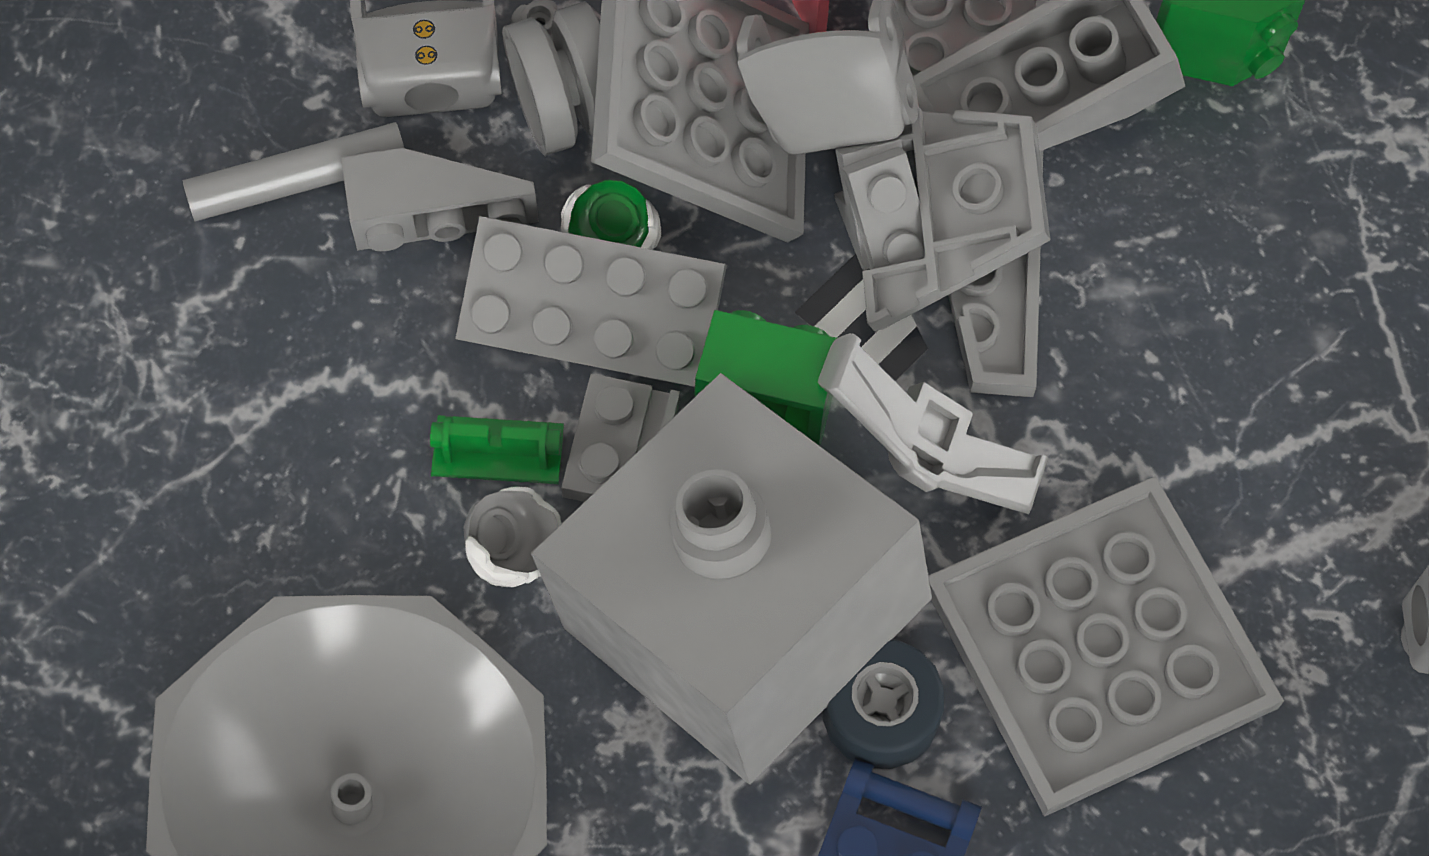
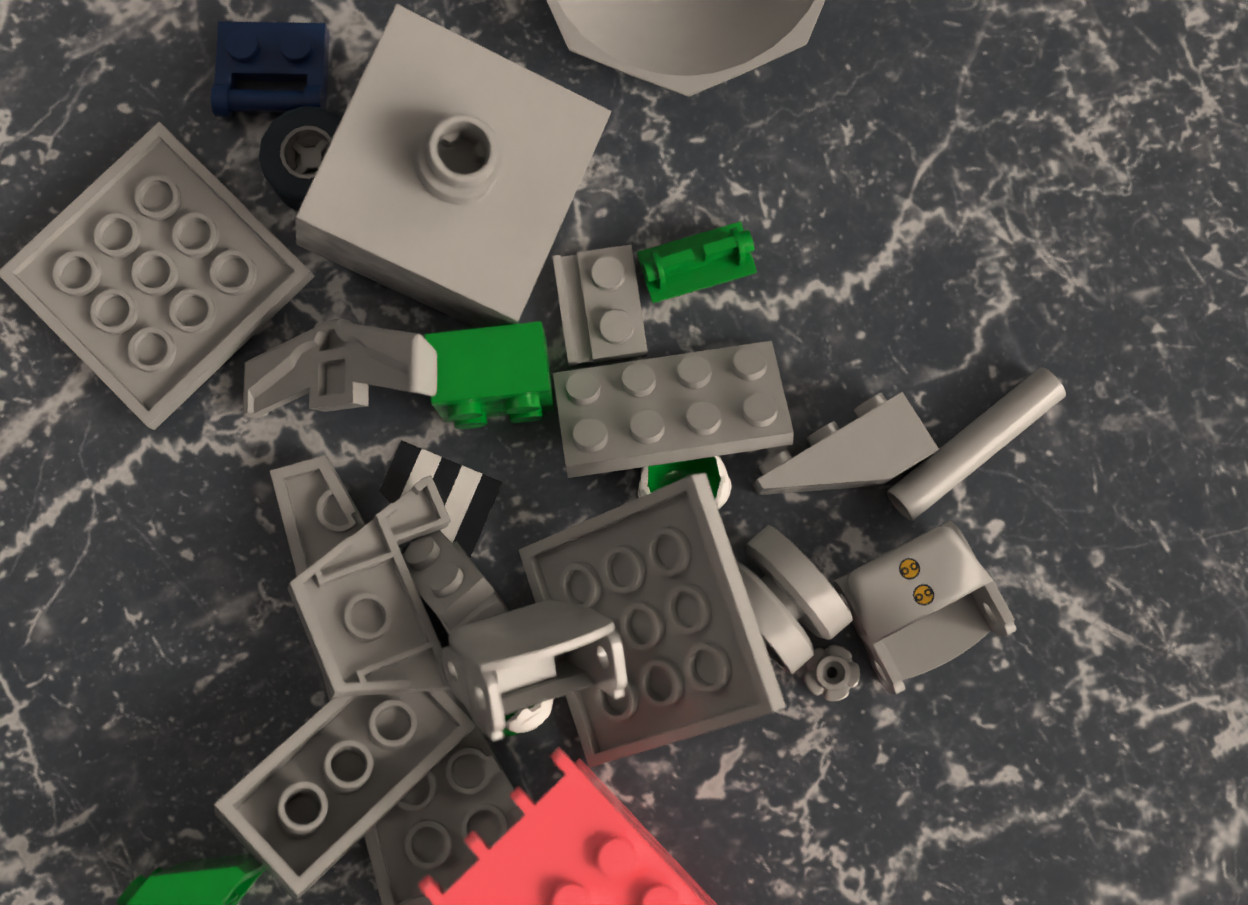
camera: 160 degrees right, 15 degrees up
(505, 531) = (651, 183): light grey hair -> none

